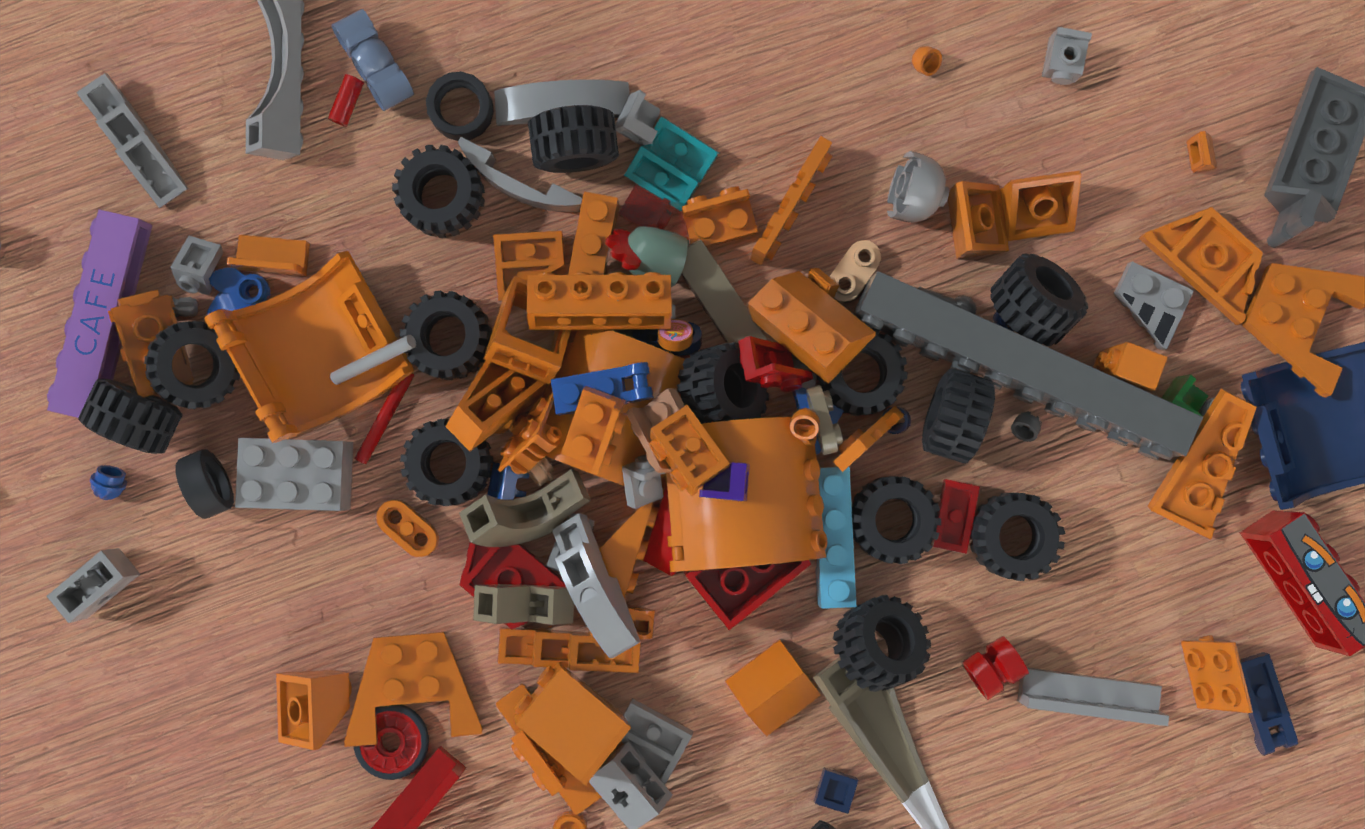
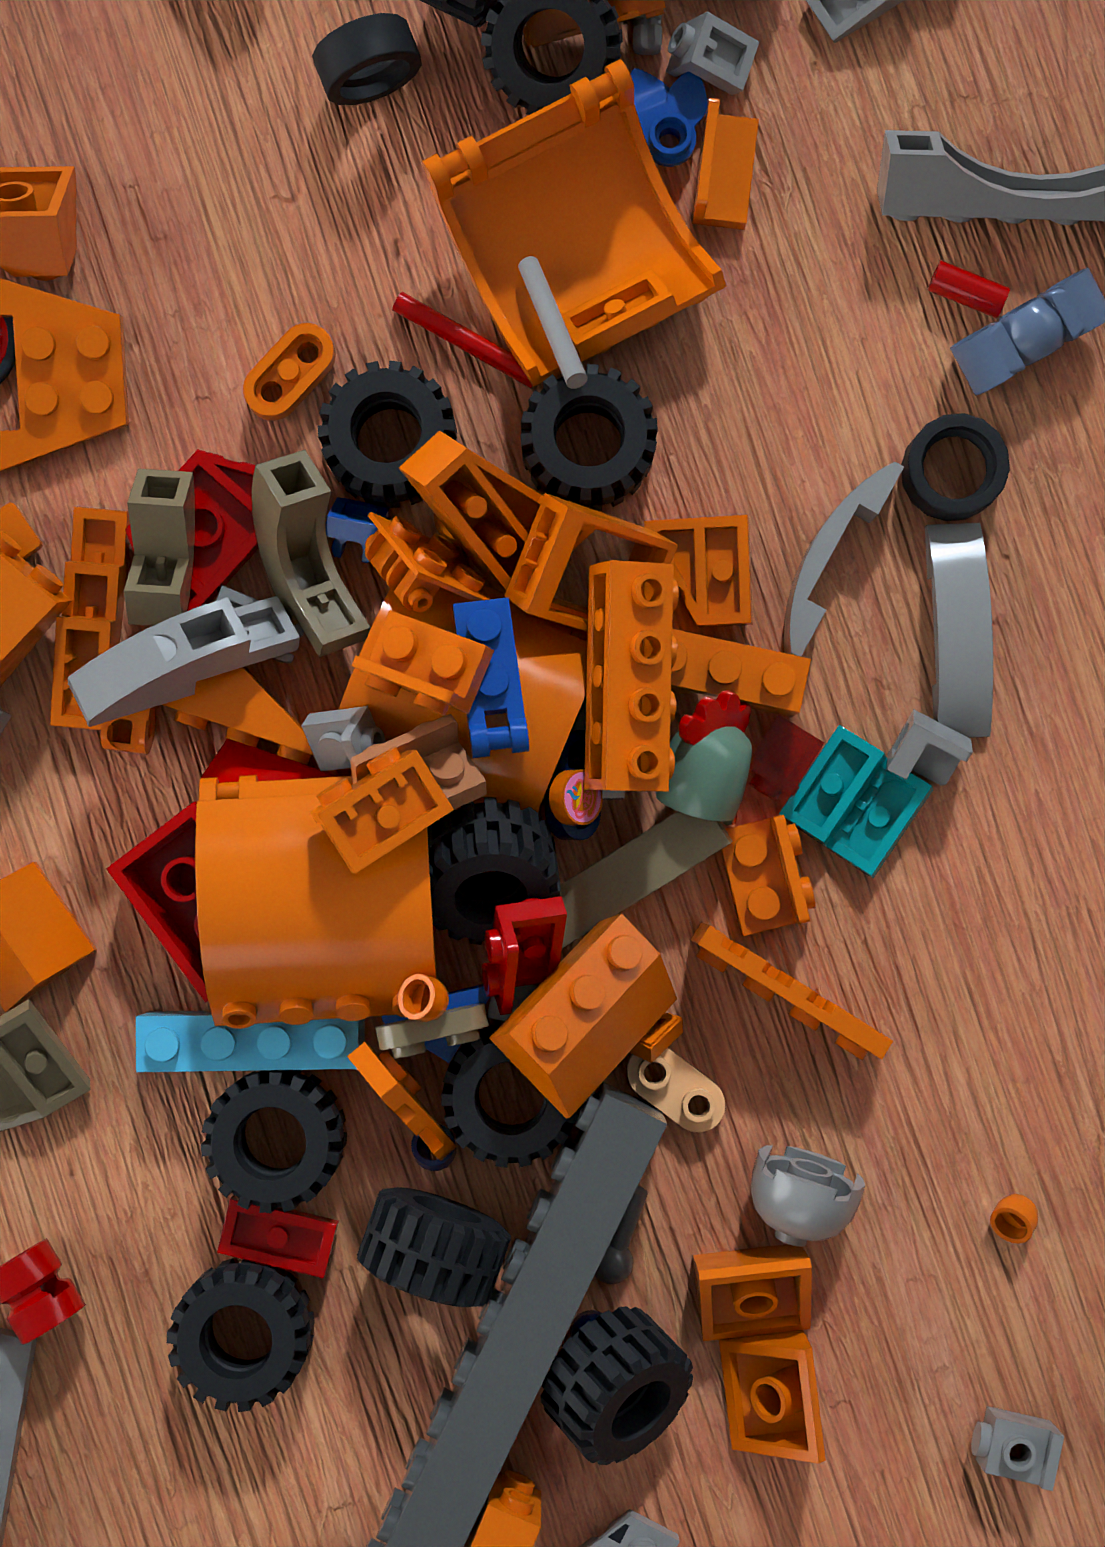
camera: 90 degrees right, 0 degrees up
(294, 474) = (377, 198): light grey brick -> none
(422, 169) = (845, 396): black tyre -> none
(541, 472) = (369, 582): light nougat plate -> none
(573, 139) = (895, 644): black tyre -> none
(729, 484) = (323, 873): dark purple panel -> none
(903, 637) = (83, 1147): black tyre -> none
(1024, 433) = (417, 1357): dark grey hinge -> none

